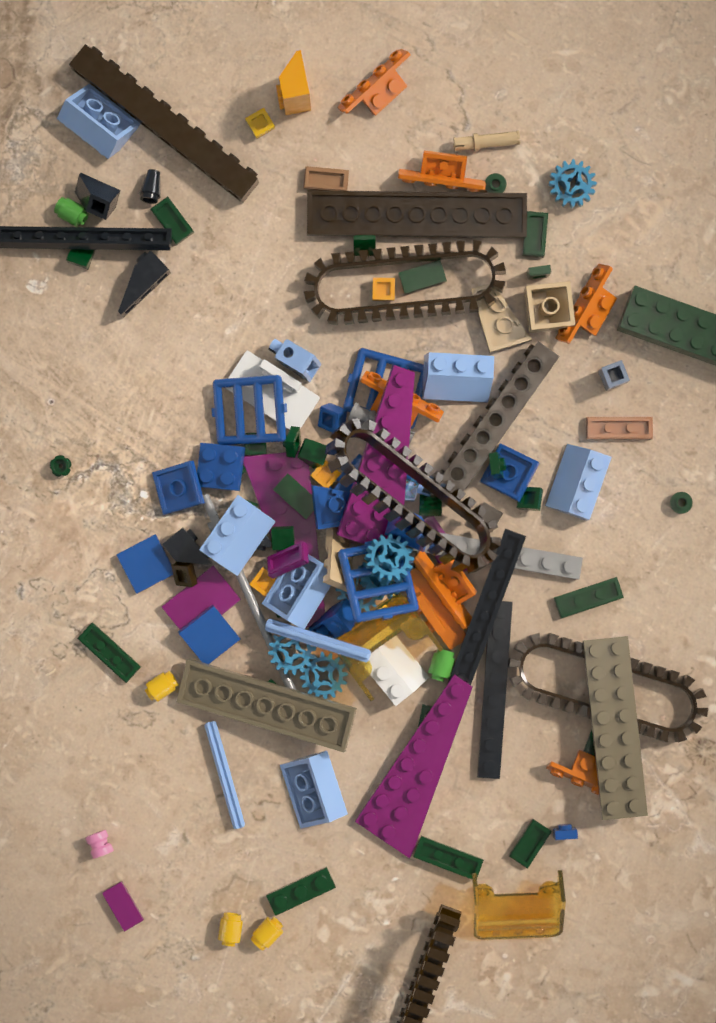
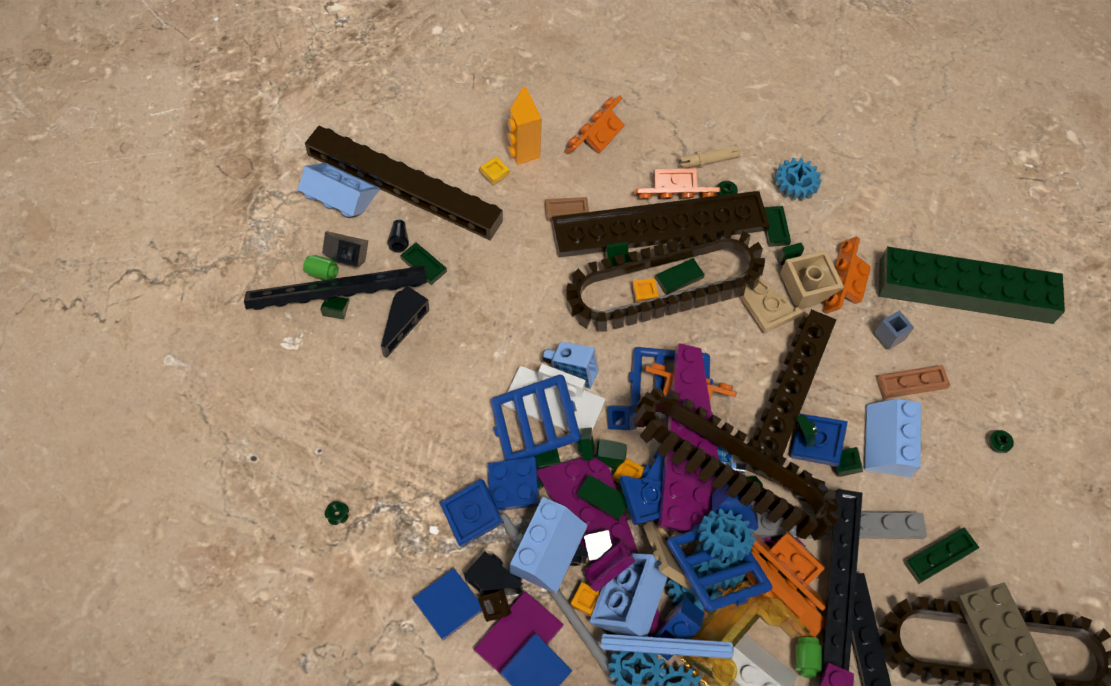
camera: 15 degrees left, 25 degrees down
(457, 377) = (741, 355): light blue slope -> none

